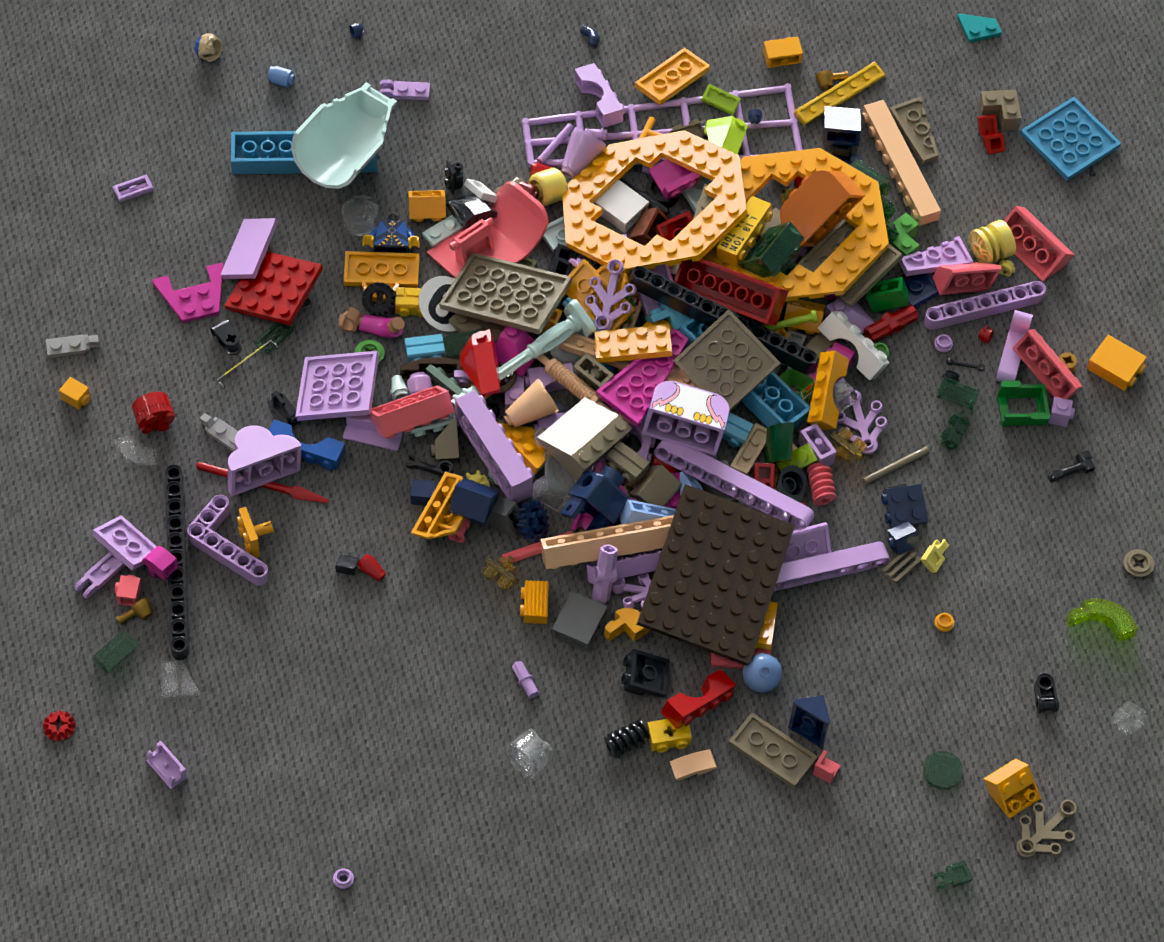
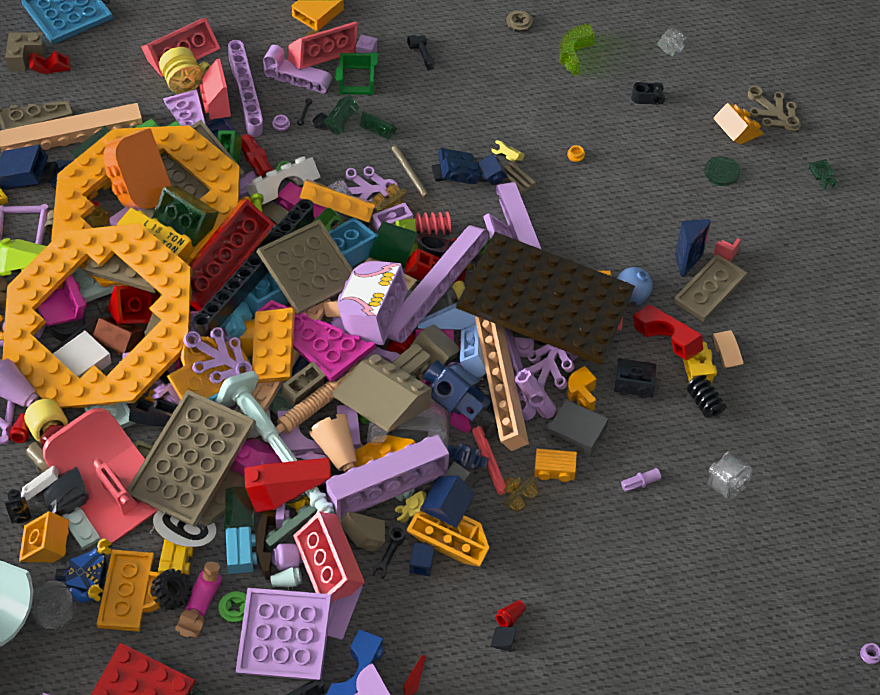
camera: 85 degrees left, 5 degrees down
(985, 334) = (275, 91): red plate -> none

